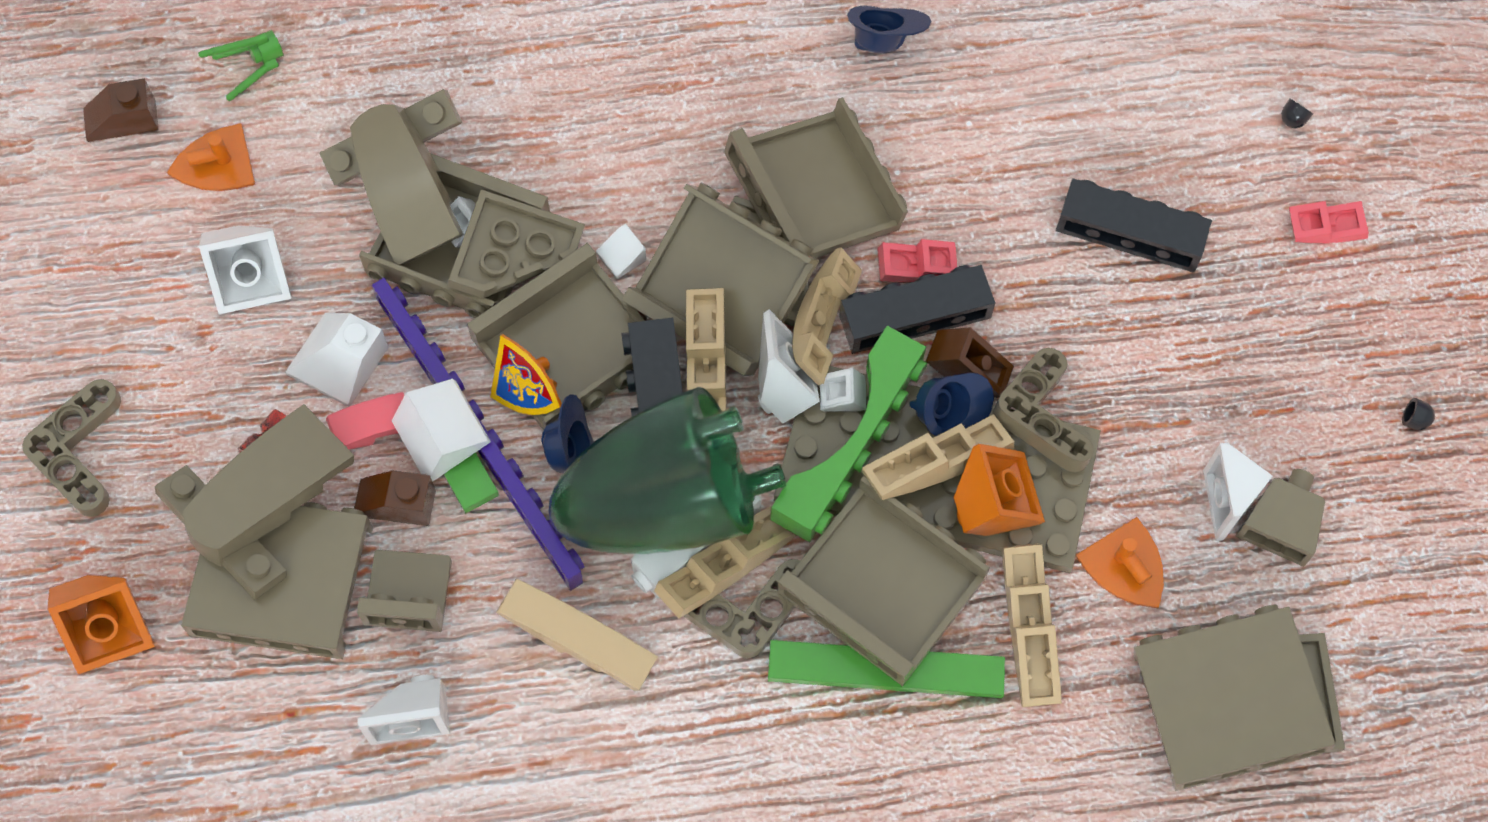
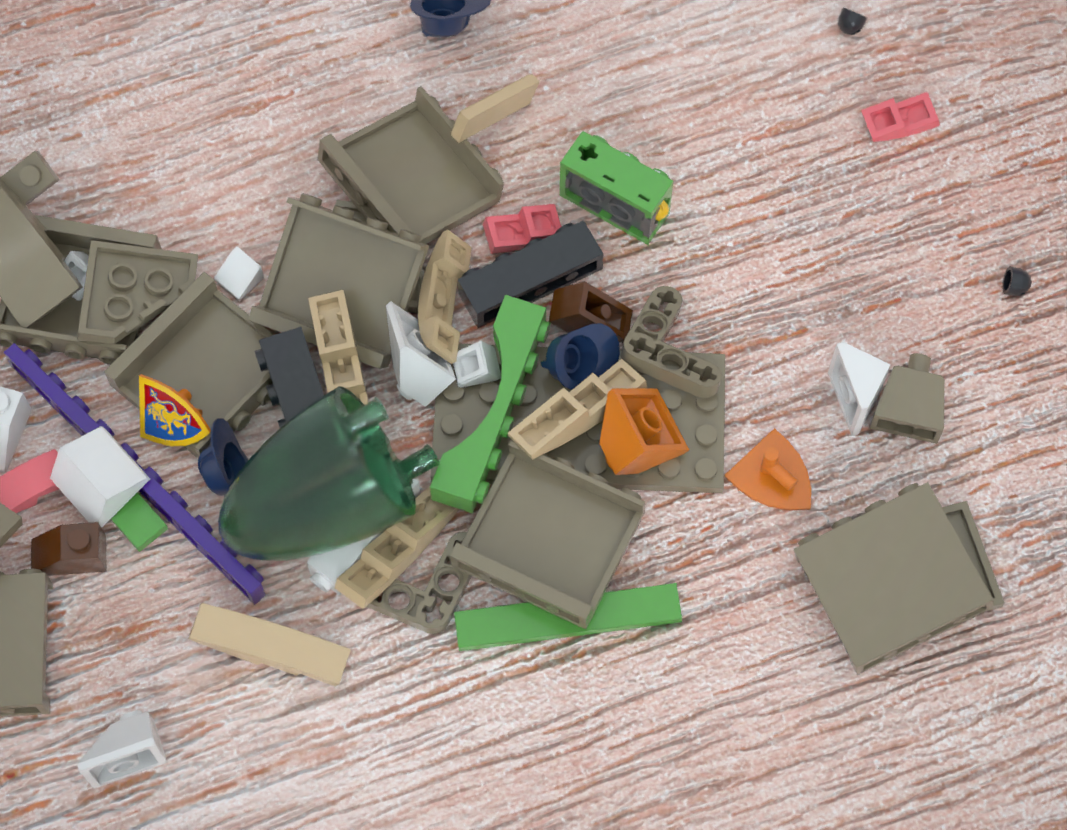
camera: 10 degrees left, 0 degrees up
(406, 591) = (98, 636): dark tan bracket -> none
(913, 133) = (494, 107): none -> tan tile
(1021, 237) = (615, 187): none -> bright green piece
(1031, 625) = (695, 548): tan slope -> none
(1134, 225) = (720, 154): black brick -> none

